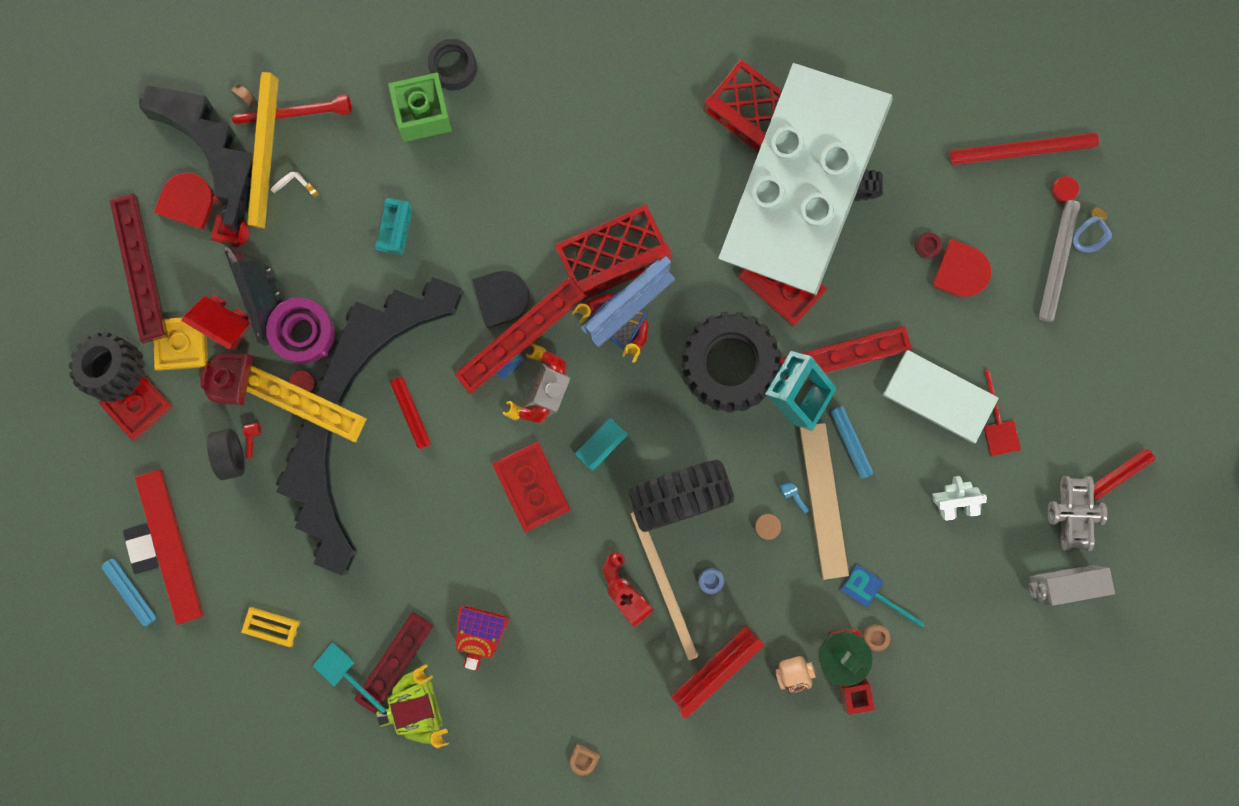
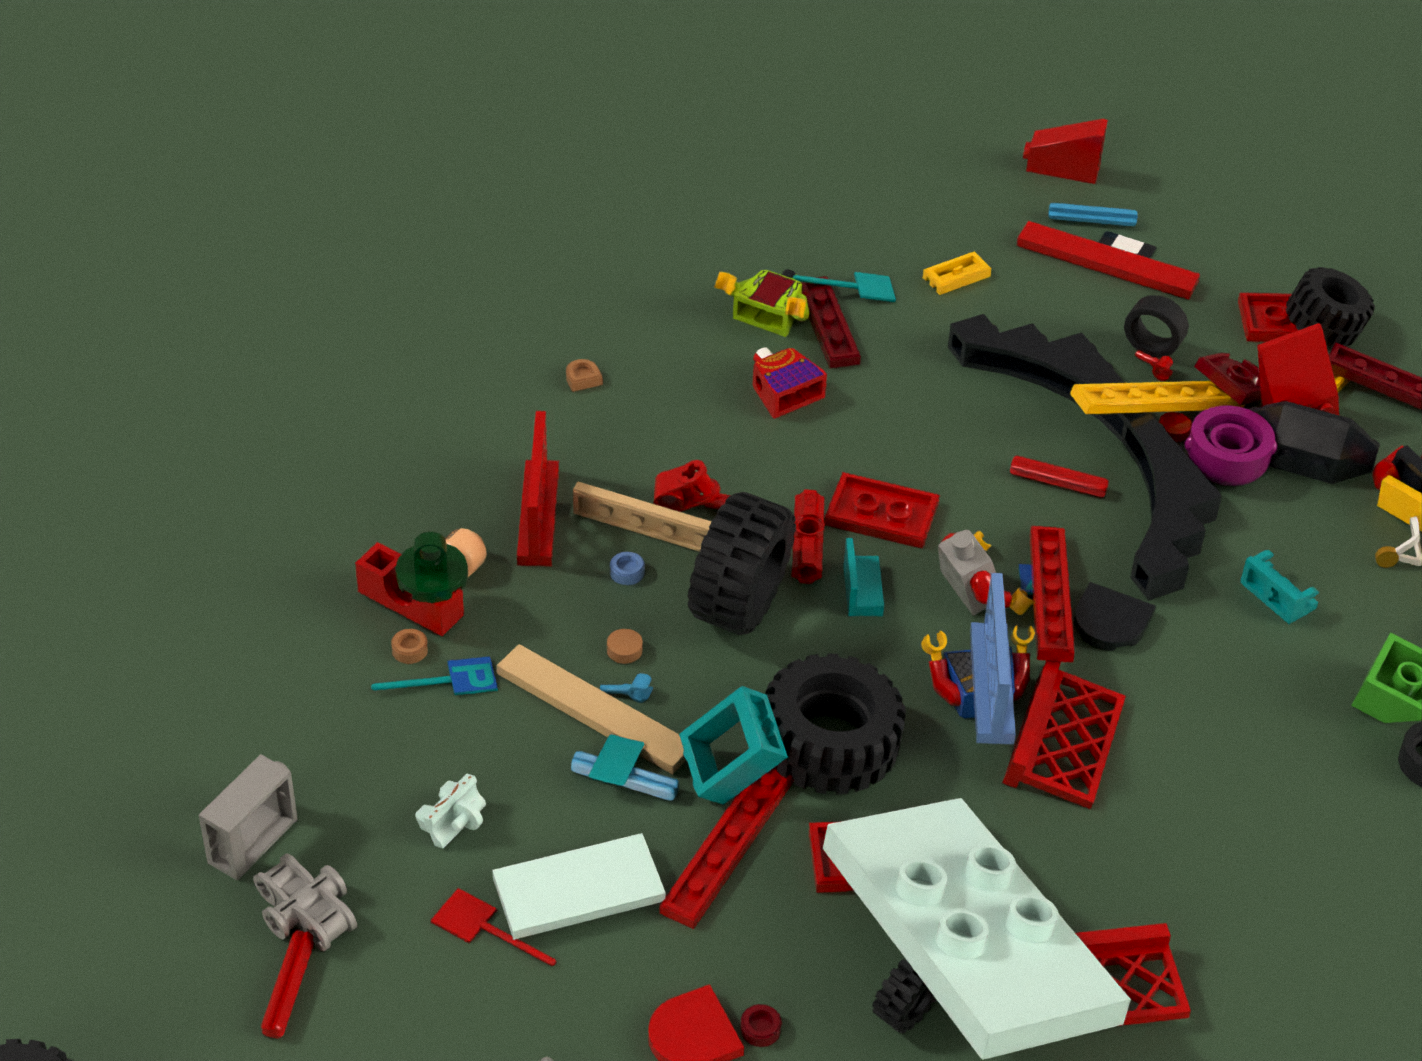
camera: 130 degrees right, 40 degrees down
(78, 656) = (1068, 151): none -> red slope
(585, 514) = (809, 537): none -> red piece
(851, 451) = (616, 760): none -> teal sticker

